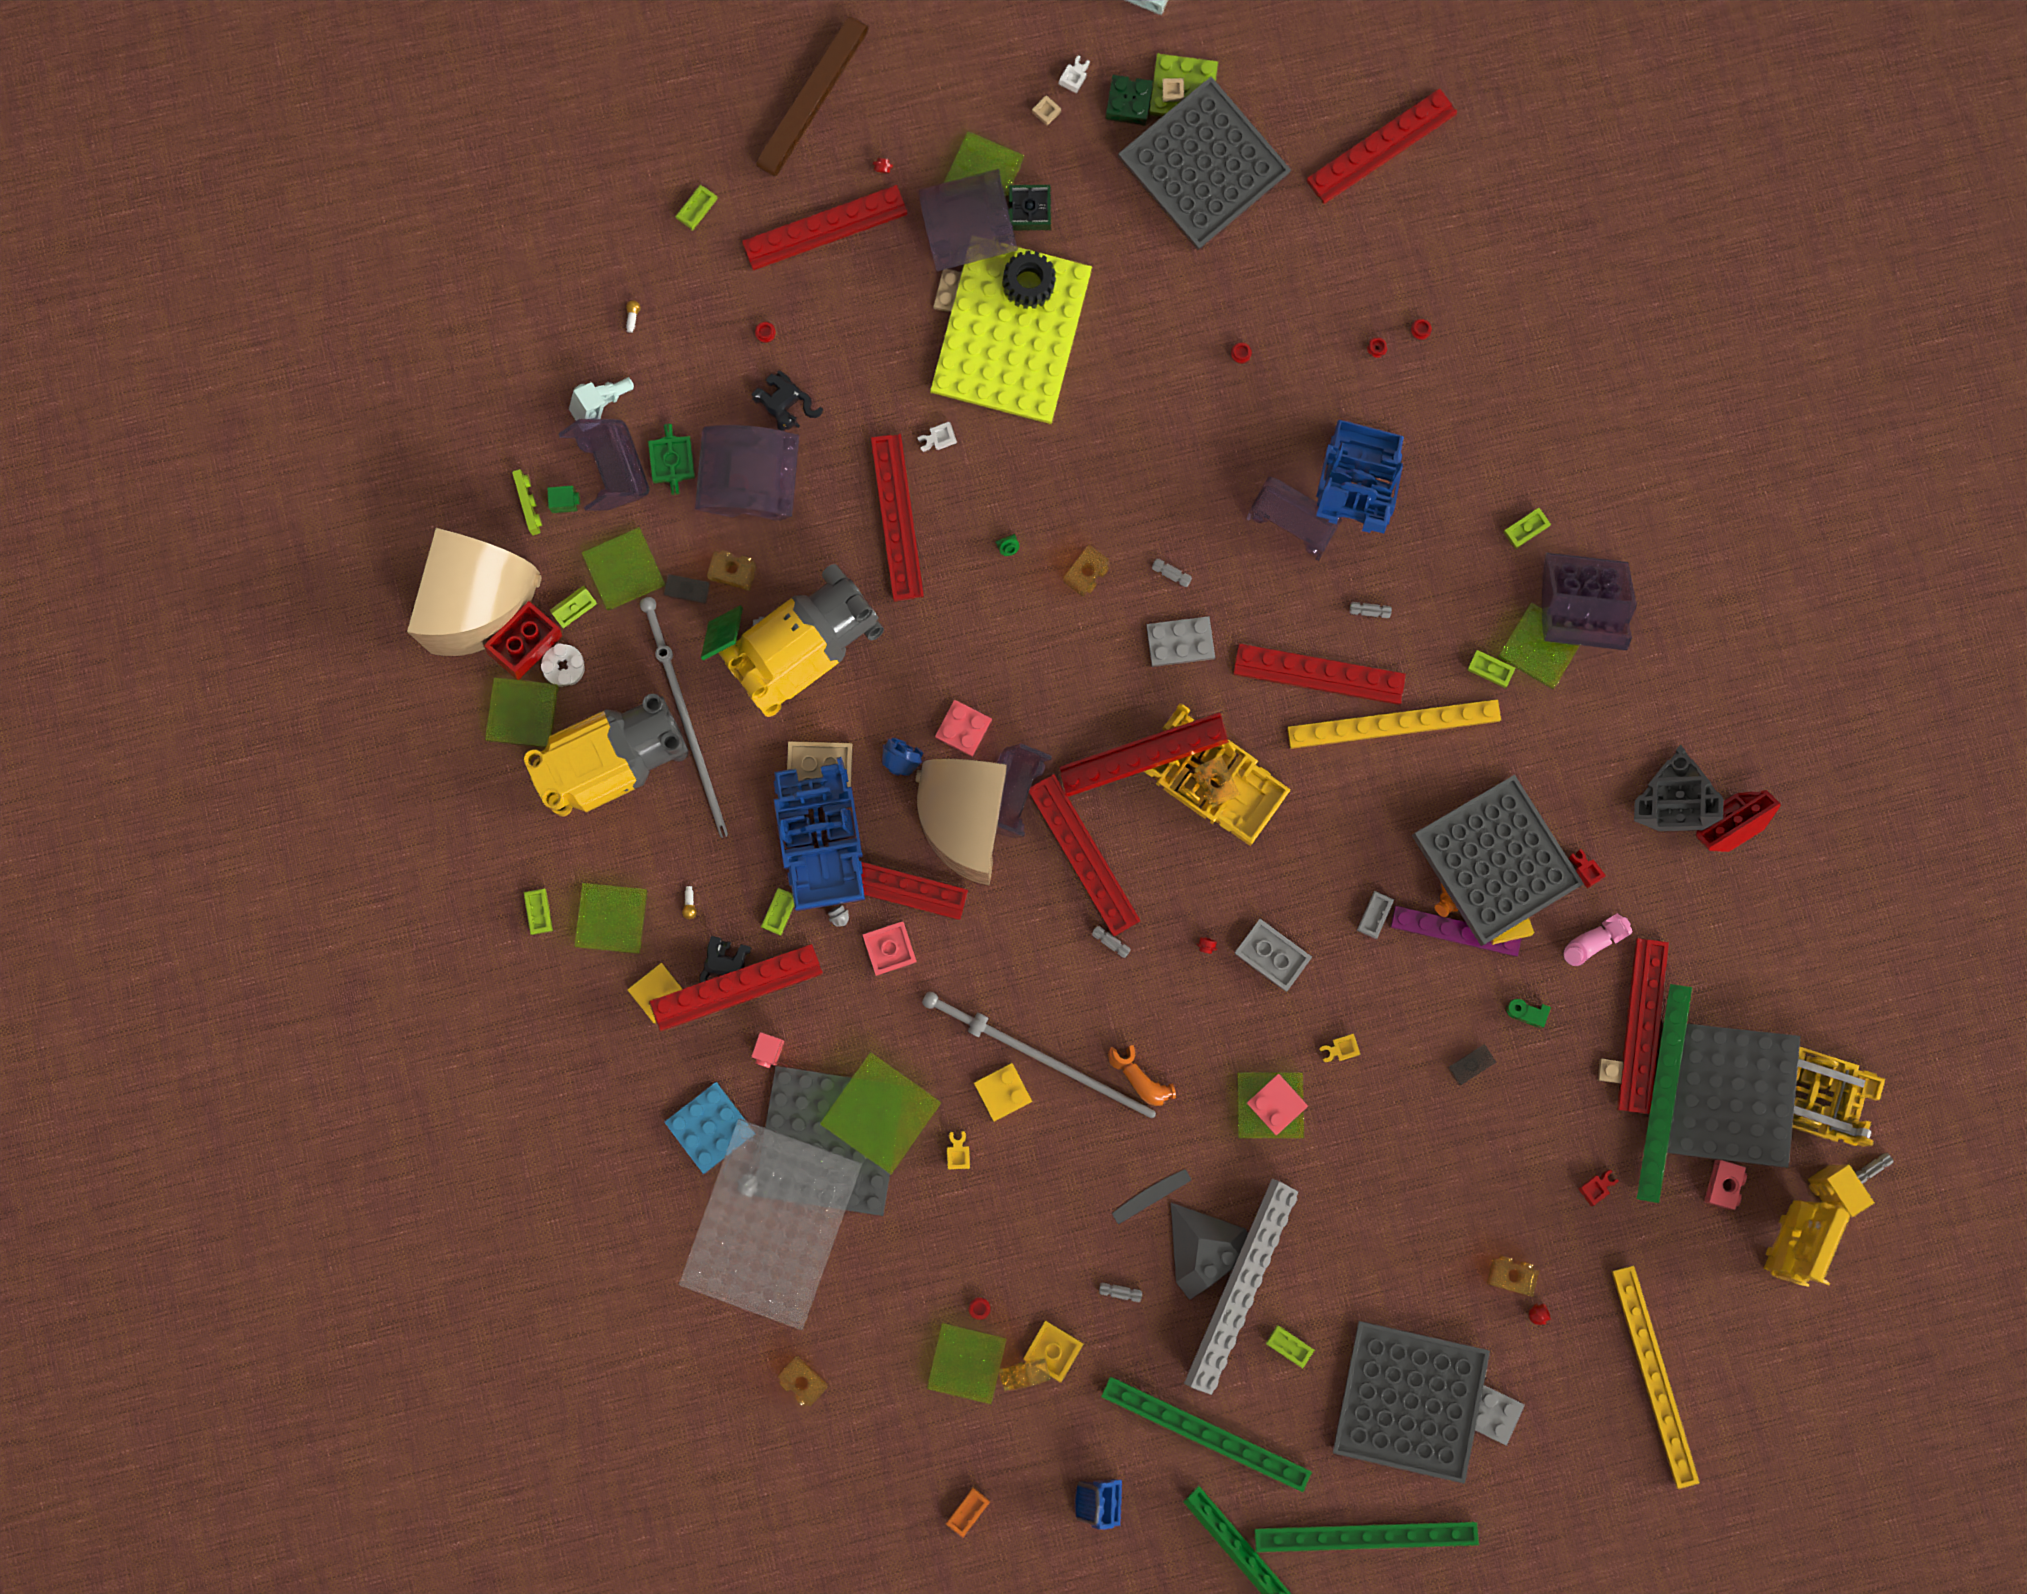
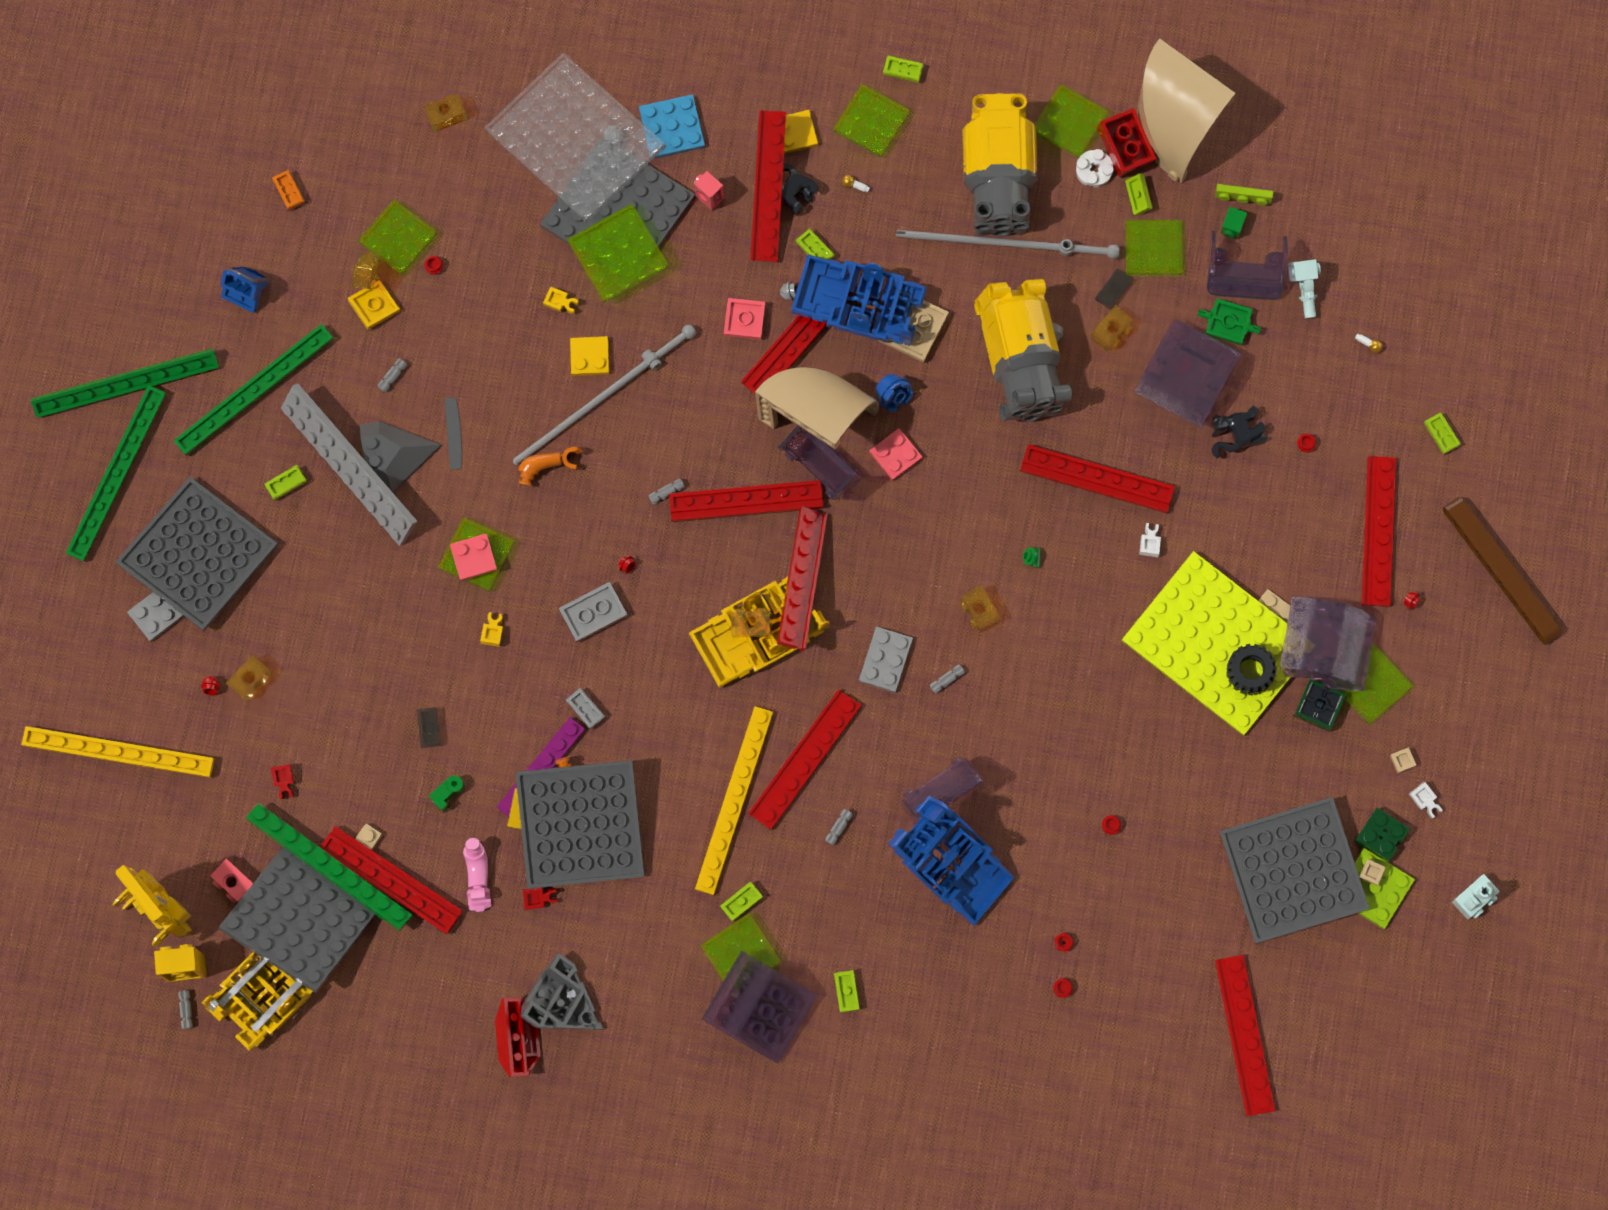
camera: 120 degrees right, 5 degrees down
(721, 632) = (1058, 291): green piece -> none

